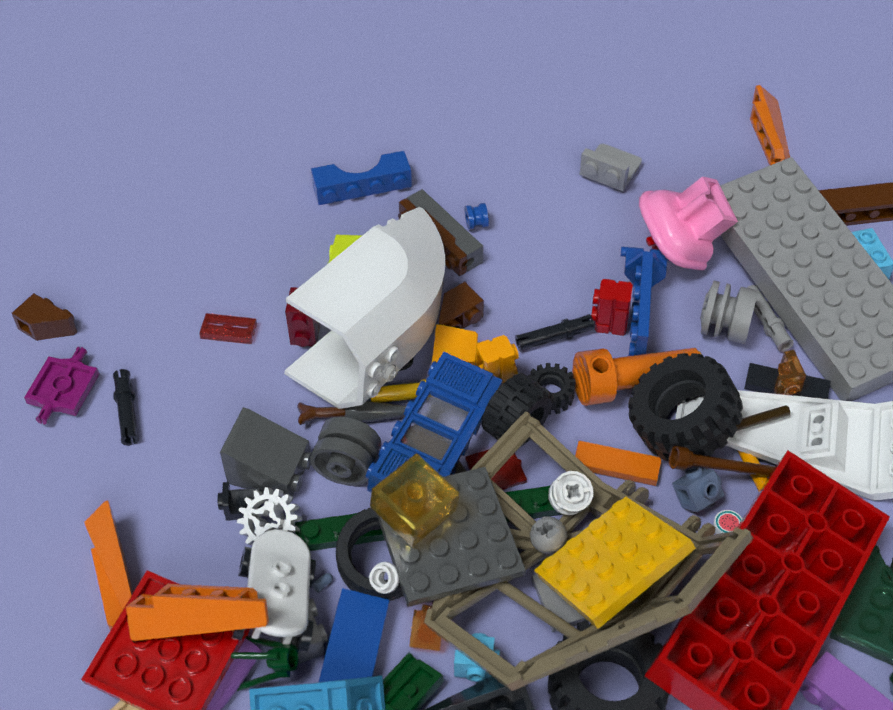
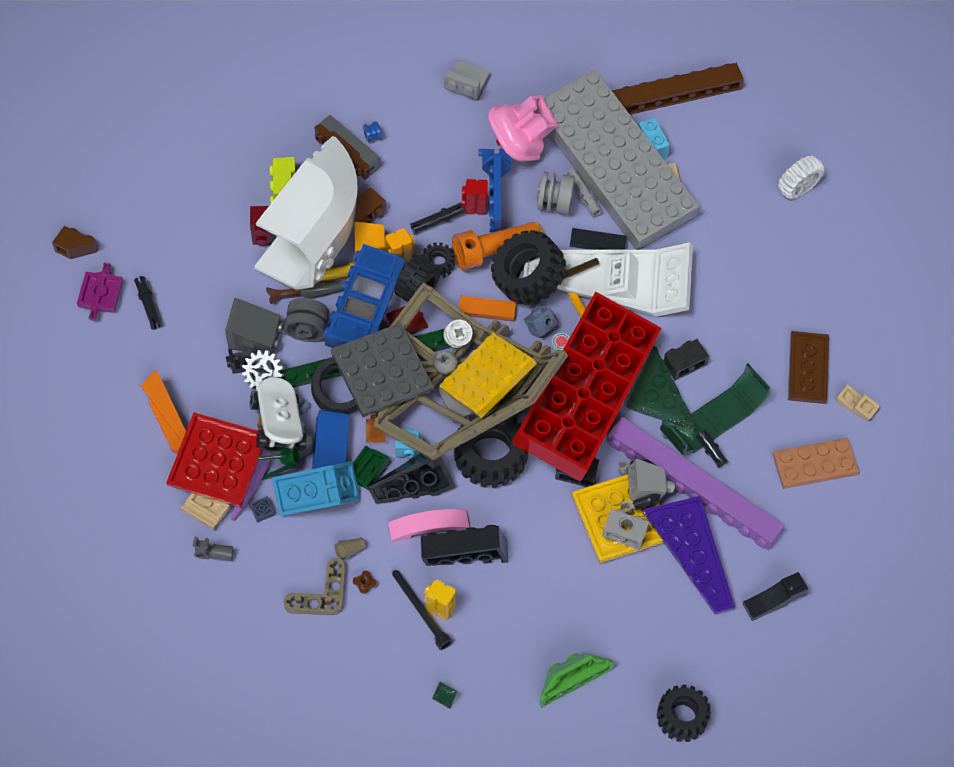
camera: 10 degrees left, 10 degrees up
(195, 610) = (232, 433): orange wedge -> none
(227, 331) = (206, 240): clear red tile -> none
(338, 185) = (265, 115): blue arch -> none
(377, 577) = (341, 401): white plate -> none
(414, 500) = (359, 350): clear yellow brick -> none
(681, 459) = (528, 303): reddish brown piece -> none
(769, 125) = (583, 36): orange wedge -> none
(791, 374) = (599, 234): clear orange bracket -> none

